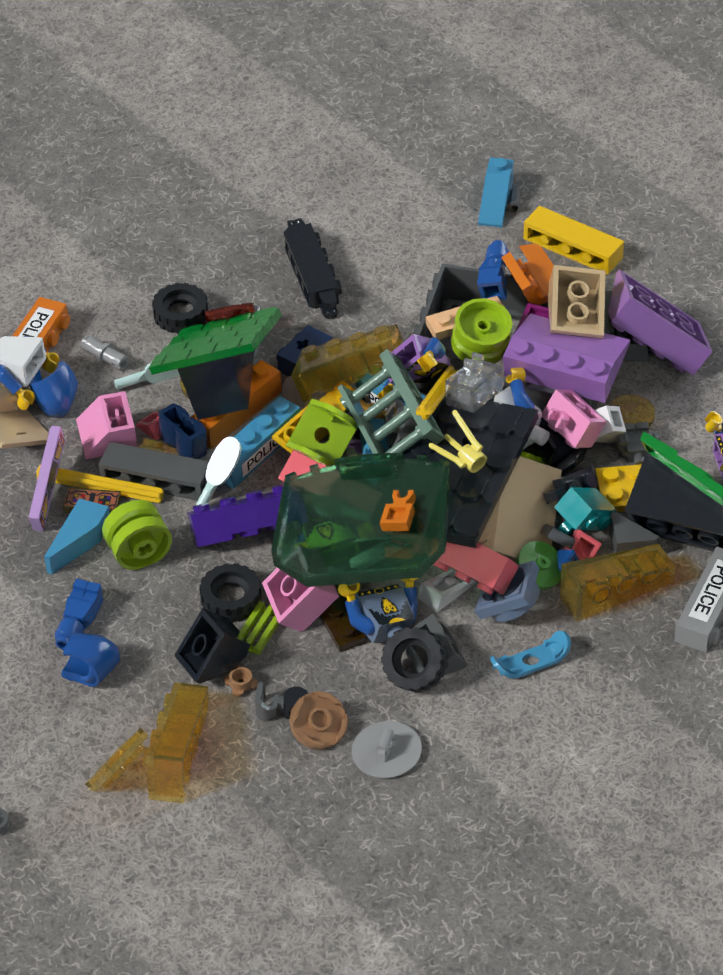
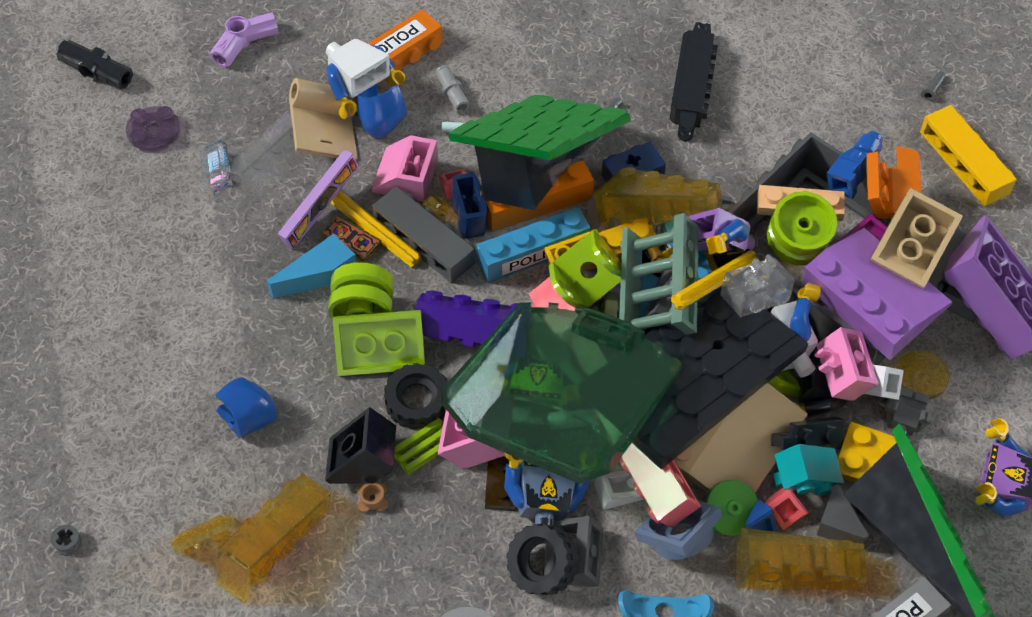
camera: 25 degrees right, 10 degrees up
(79, 610) = (268, 351): blue piece -> none
(173, 563) = (378, 342): none -> lime plate
(179, 294) = (546, 55): black tyre -> none
(220, 467) = (475, 261): light aqua piece -> none
(229, 311) = (586, 96): clear red tile -> none
(279, 703) = (404, 548): dark grey leg -> none
(318, 720) = (415, 580): medium nougat tile -> none
(400, 513) = (600, 400): orange plate -> none
(469, 455) = (706, 366): light yellow plant -> none
(496, 192) = (918, 71): dark azure slope -> none
(558, 536) = (764, 486): black tile -> none

